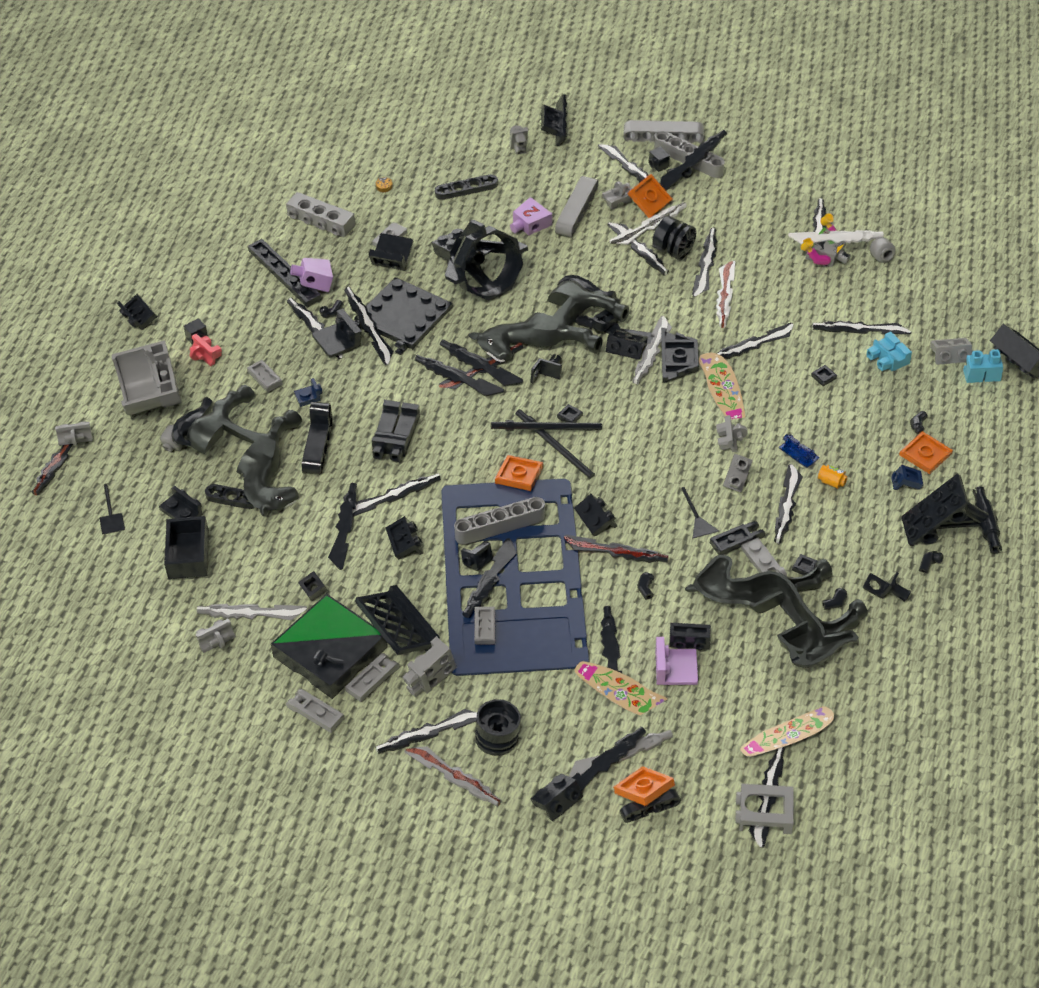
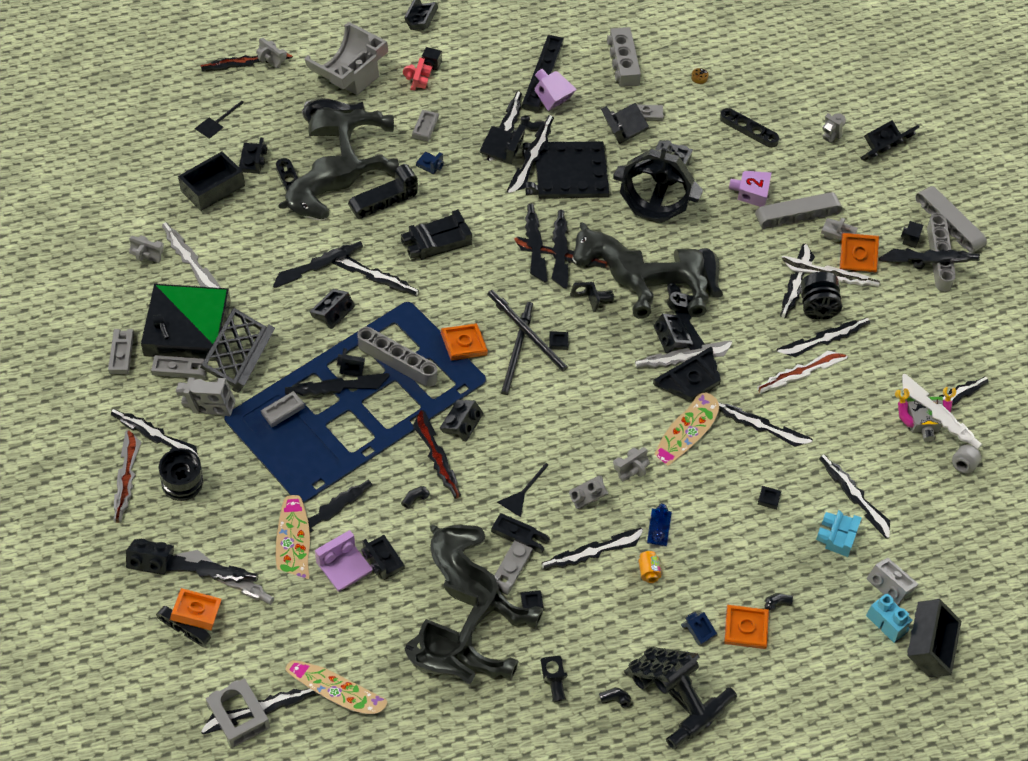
camera: 50 degrees right, 5 degrees up
(310, 581) = (236, 278): black plate -> none
(631, 167) = (886, 221): sword -> none
(837, 601) = (511, 647): black arm -> none

